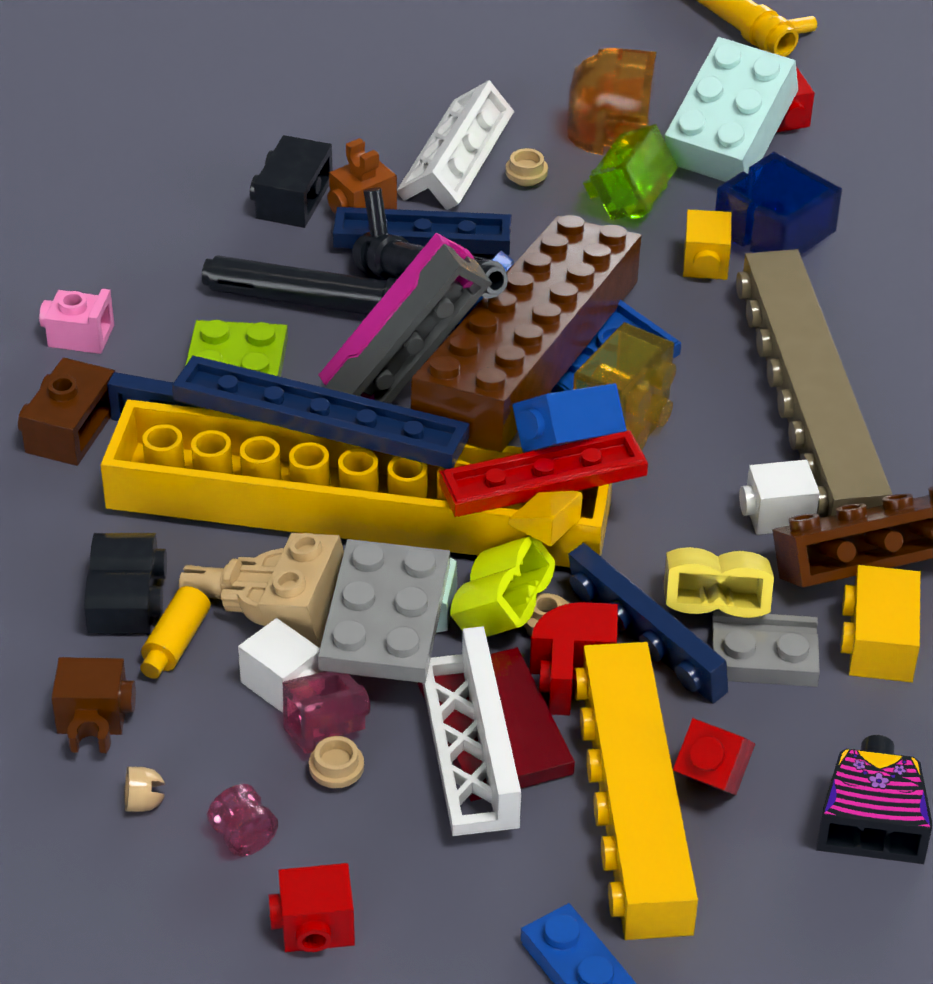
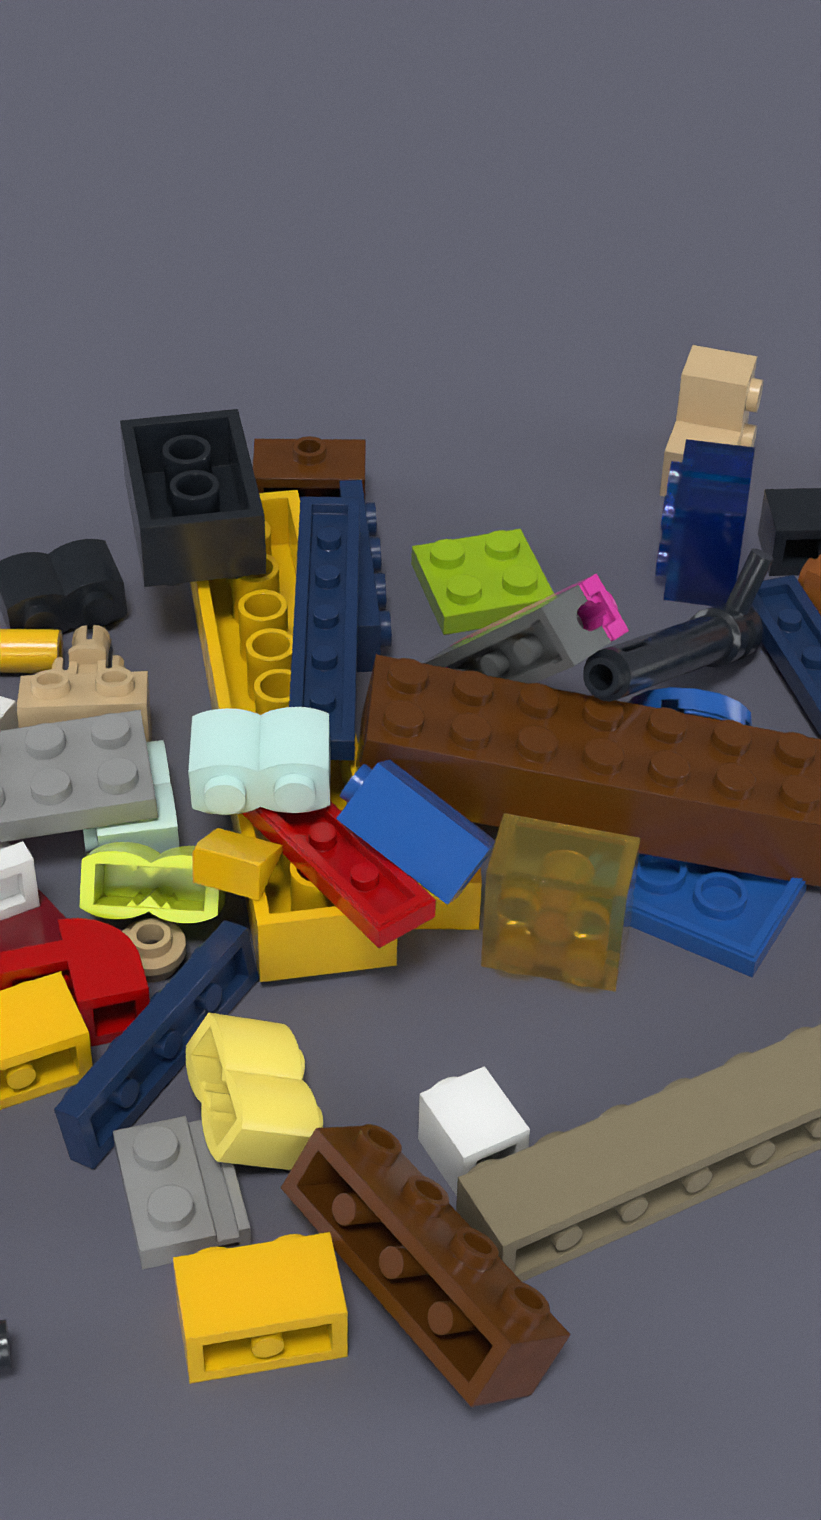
camera: 70 degrees right, 0 degrees up
(78, 320) = (463, 433): bright pink brick -> none
(146, 437) = (193, 498): none -> black brick
(154, 192) = (714, 403): none -> tan brick
(283, 227) = (704, 522): none -> clear blue piece
(294, 284) = (635, 592): black cylinder -> none
(484, 465) = (260, 760): none -> light aqua brick

